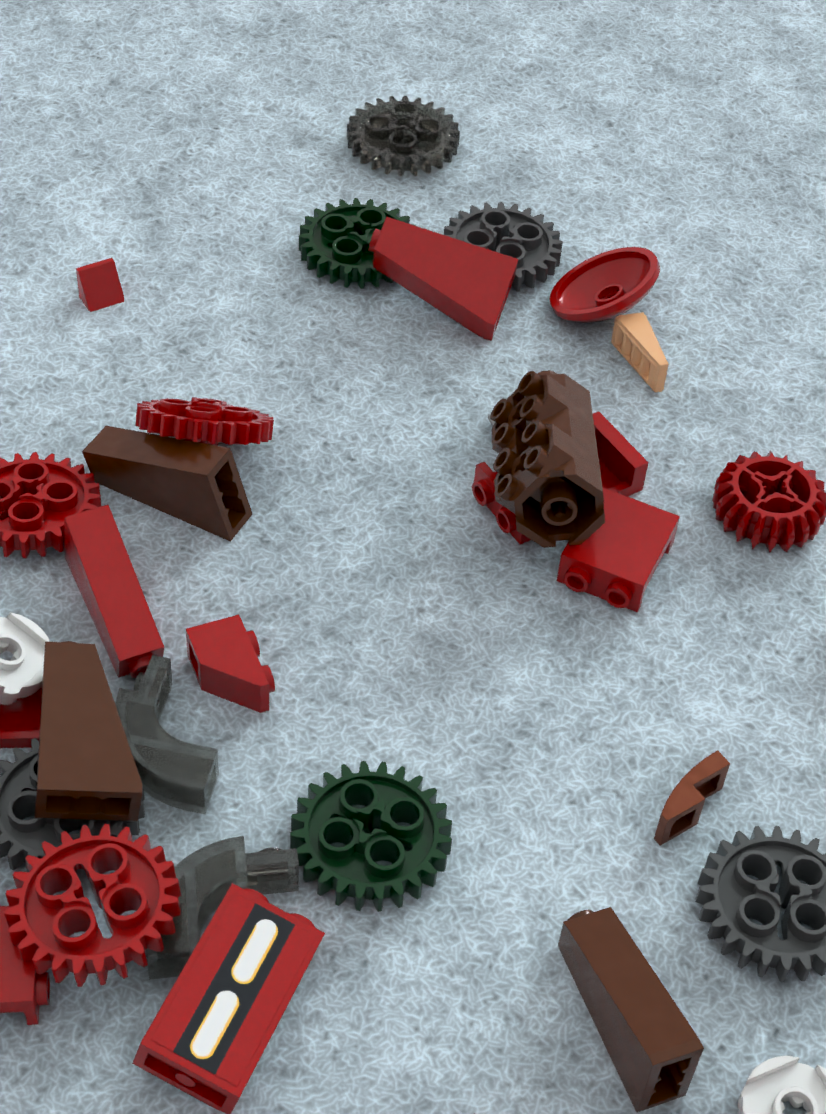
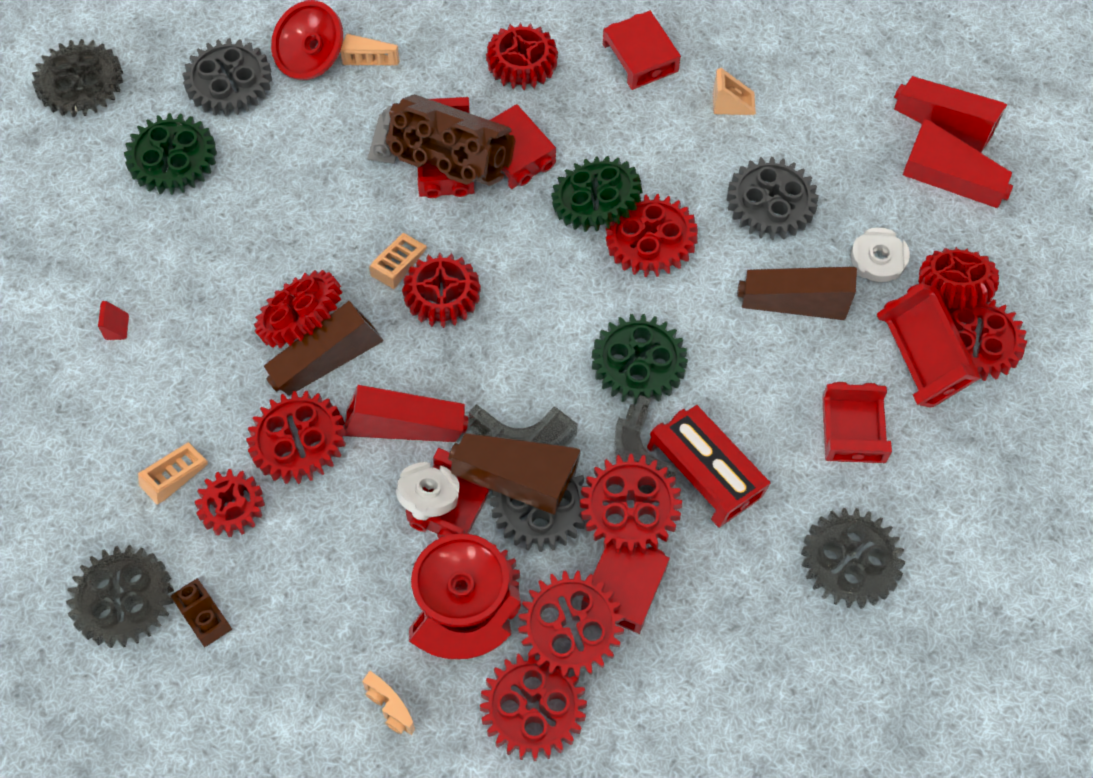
camera: 60 degrees left, 15 degrees up
(228, 663) = (487, 378): red slope -> none
(333, 507) = (394, 277): none -> light nougat slope
(338, 551) = (462, 287): none -> red gear
(446, 273) = (248, 117): red slope -> none
(592, 766) = (652, 228): none -> red gear
(610, 668) = (617, 193): none -> dark green gear
(688, 797) = (697, 204): copper slope -> none

